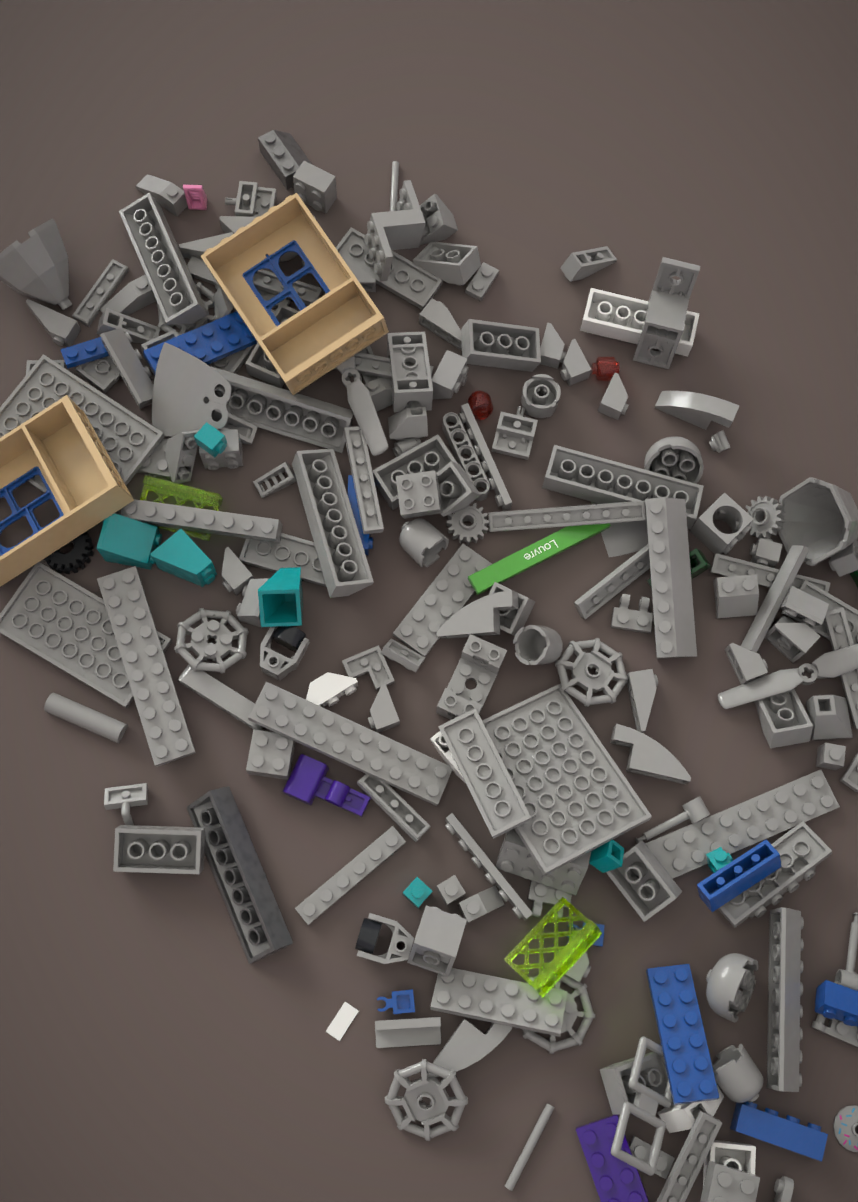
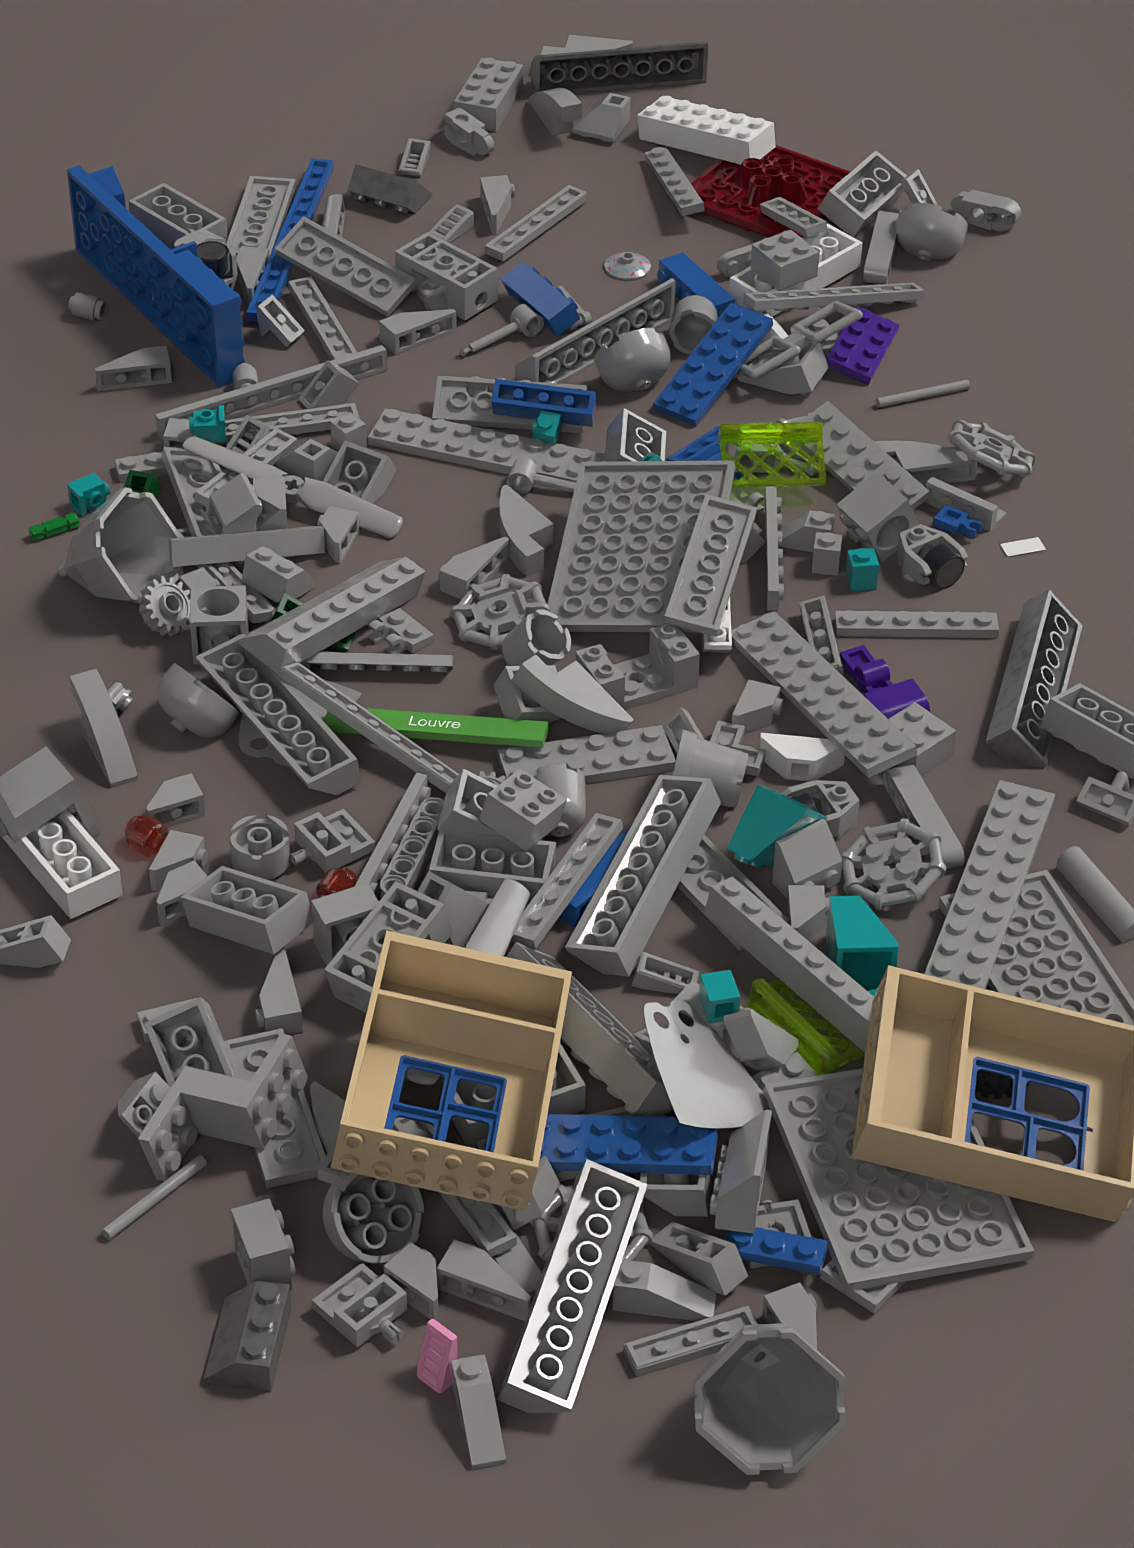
camera: 135 degrees left, 30 degrees down
(359, 621) = (713, 761): none -> light grey piece
(615, 937) = (700, 449): none -> blue plate

